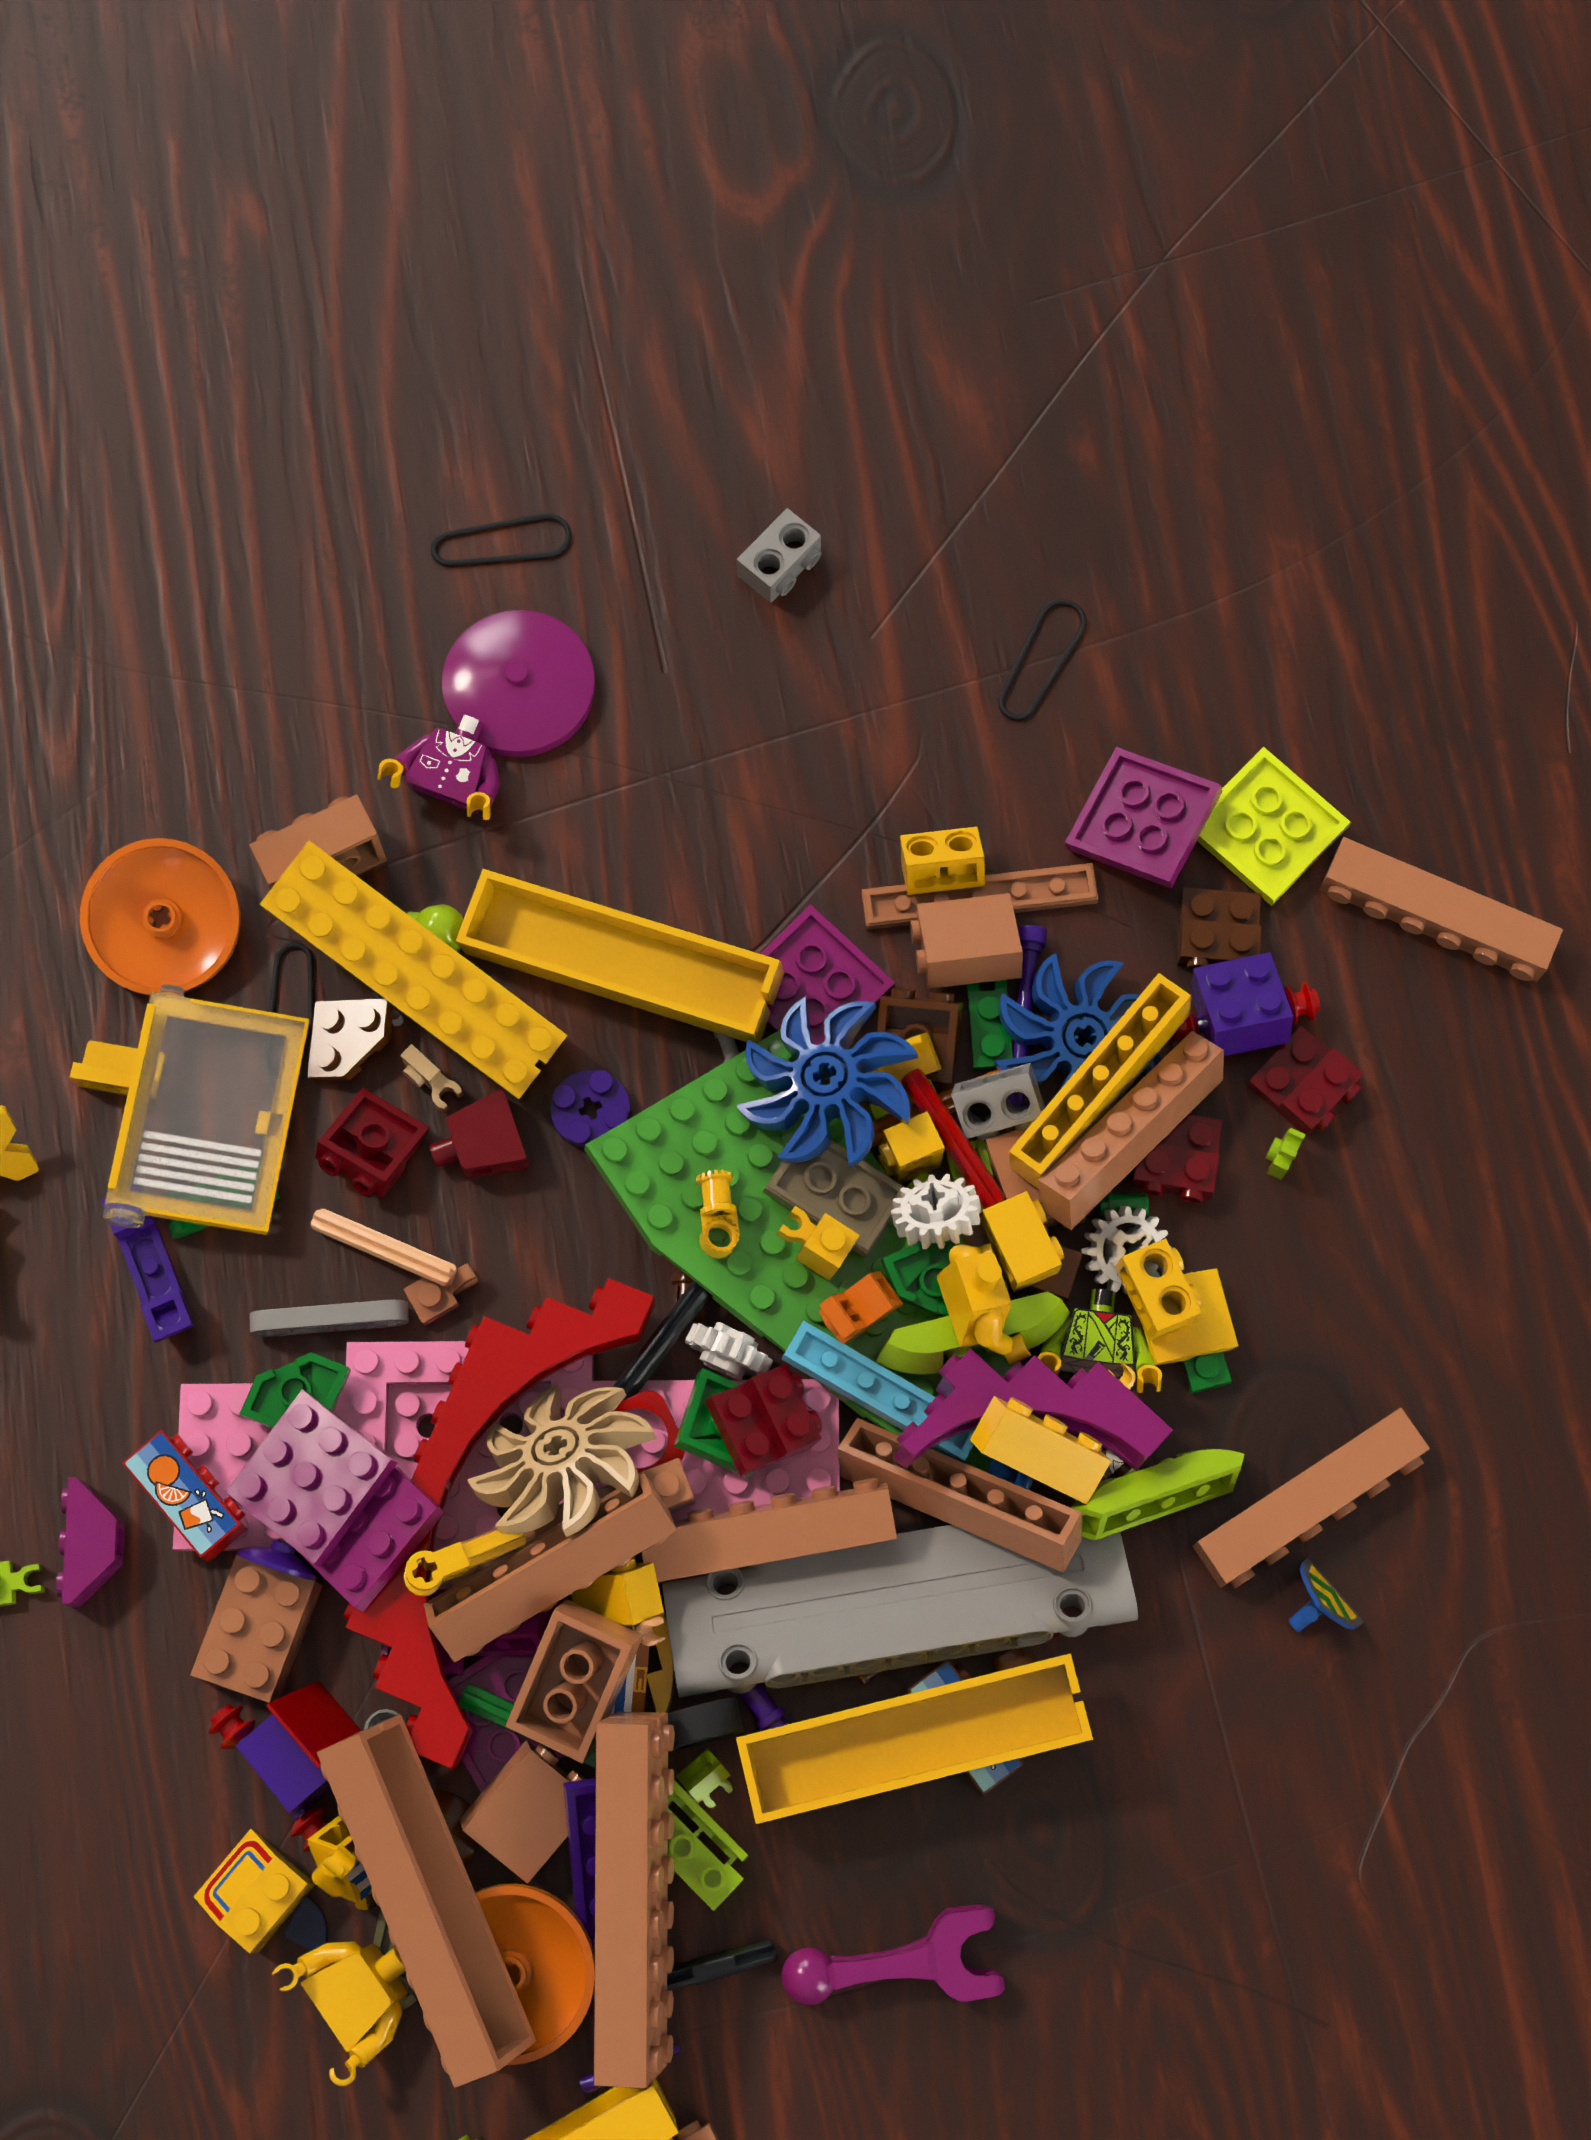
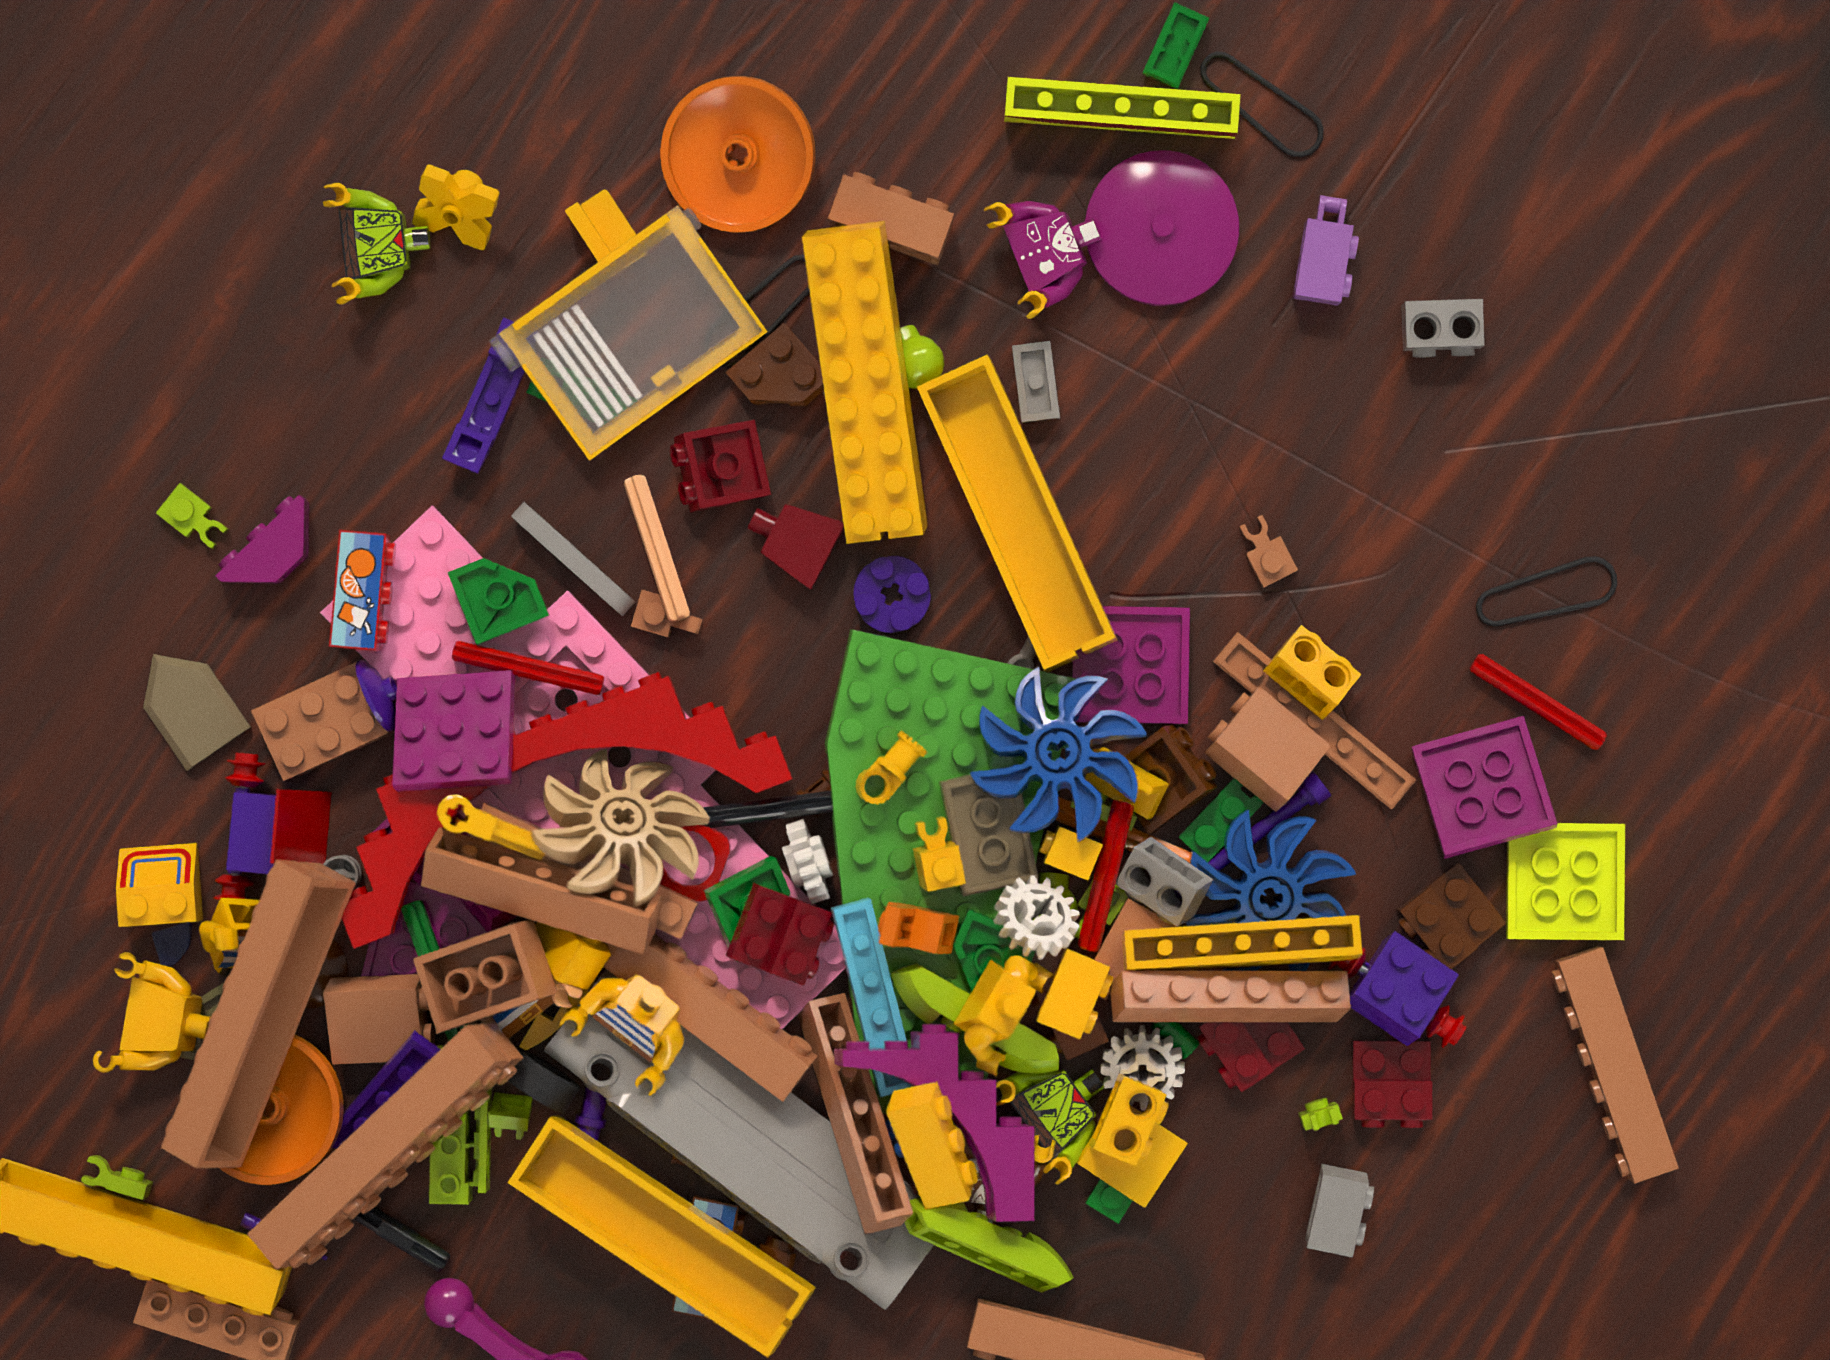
camera: 50 degrees right, 15 degrees up
(145, 1729) = (191, 709): none -> dark tan tile
(311, 1478) = (450, 668): plate -> none
(401, 558) = (1175, 45): none -> green plate
(401, 1406) = (528, 667): none -> red axle
(405, 627) = (1122, 107): none -> neon yellow brick
(423, 1071) = (805, 449): tan plate -> none
(538, 862) = (1035, 382): none -> light grey plate
(650, 589) = (1325, 255): none -> medium lavender brick
(722, 1589) = (639, 1017): none -> yellow torso
(828, 821) = (1269, 558): none -> nougat plate
(1115, 730) = (1538, 702): none -> red axle
(1372, 1204) = (1338, 1210): none -> light grey brick

